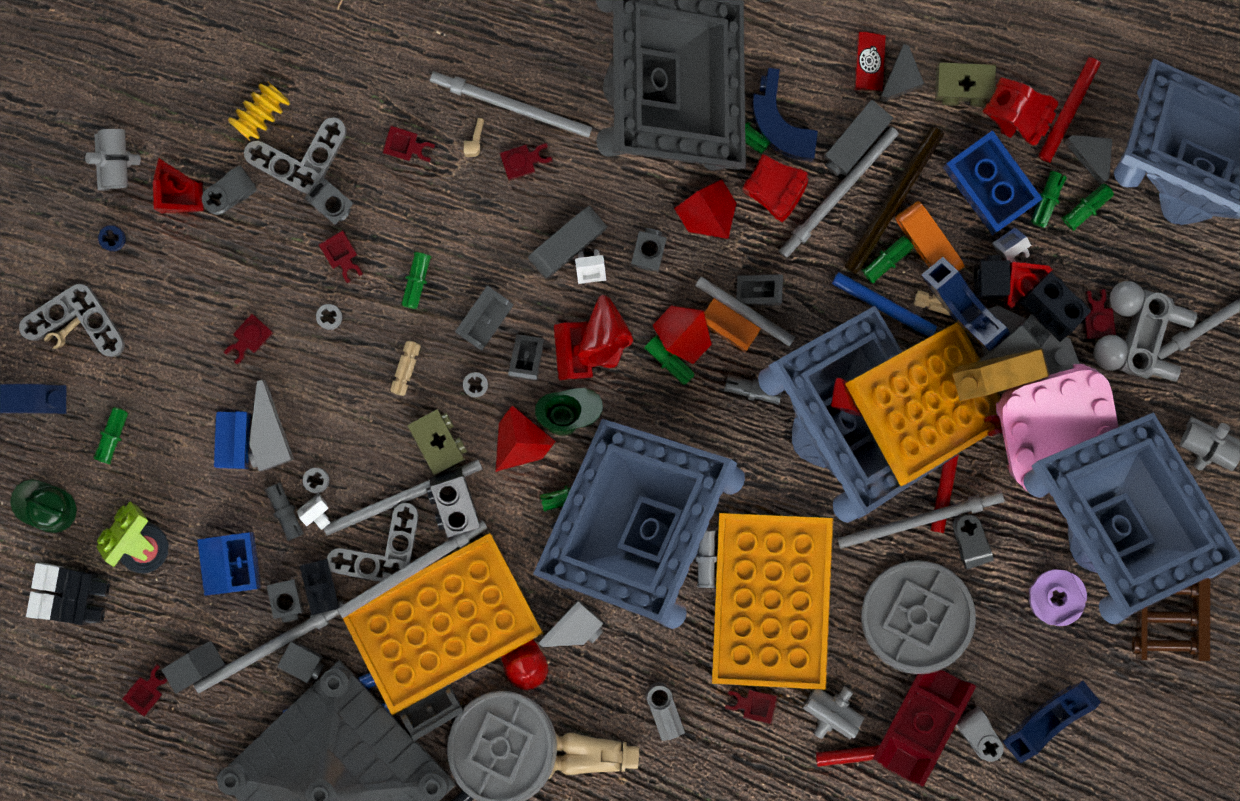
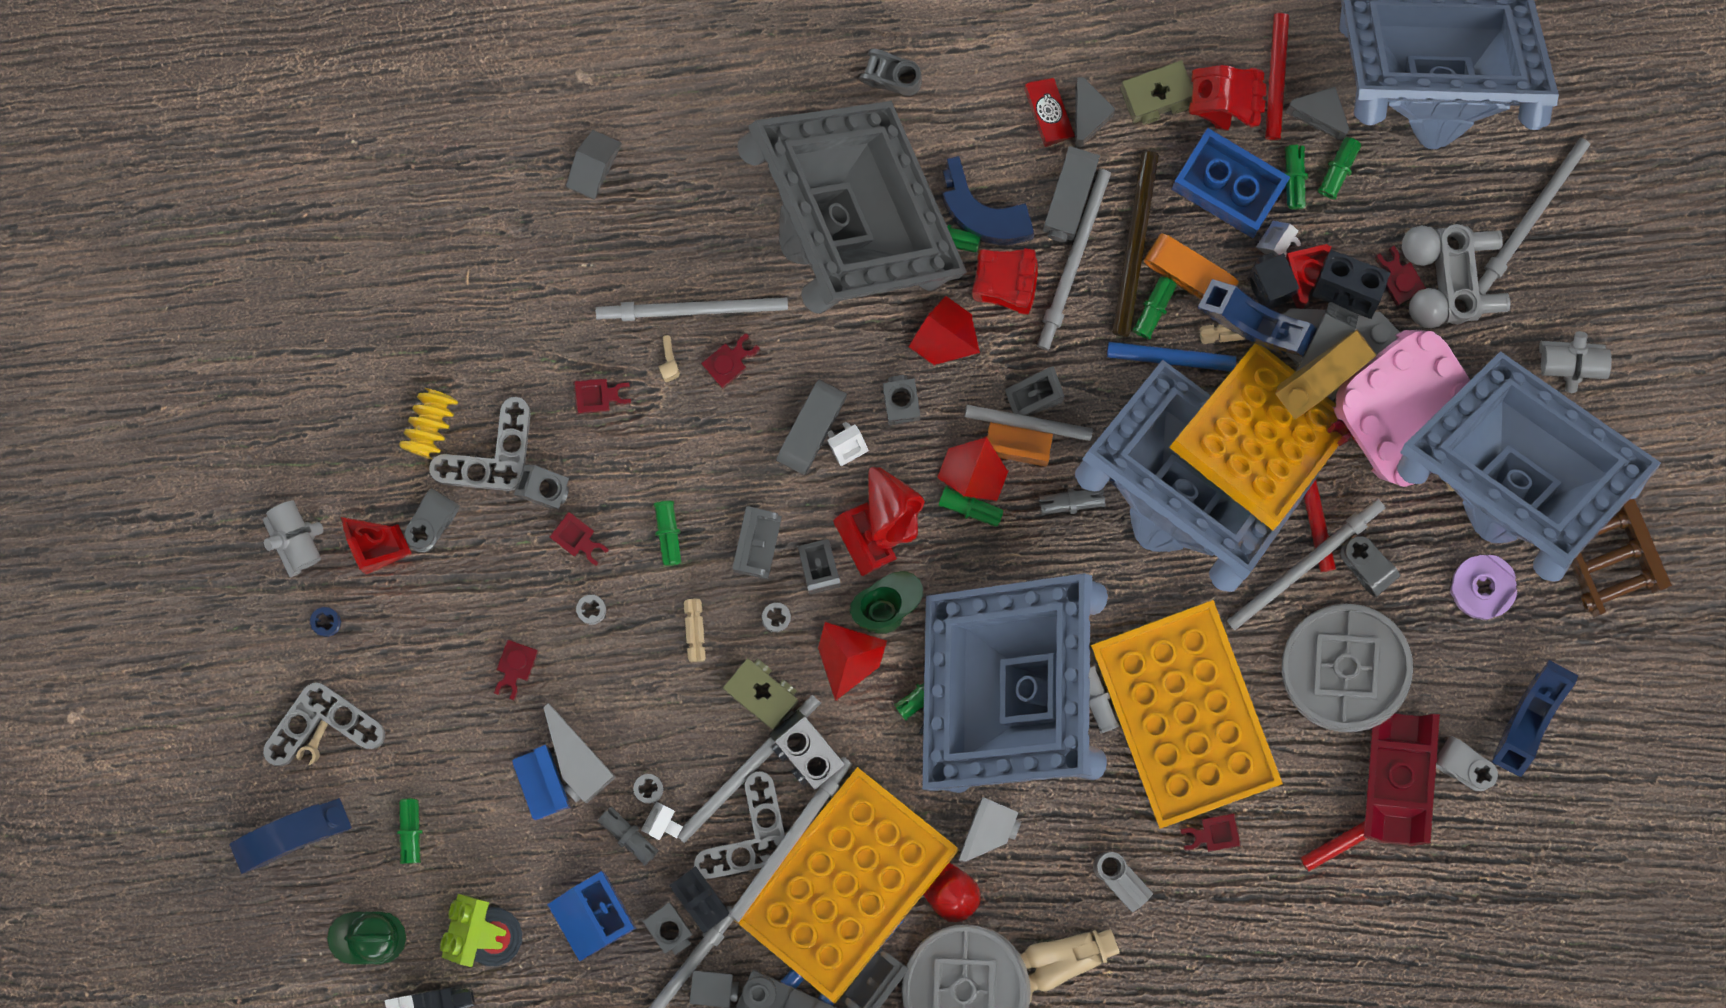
camera: 25 degrees left, 5 degrees down
(833, 713) = (1301, 806): light grey pin -> none
(843, 400) = (1176, 467): red slope -> none

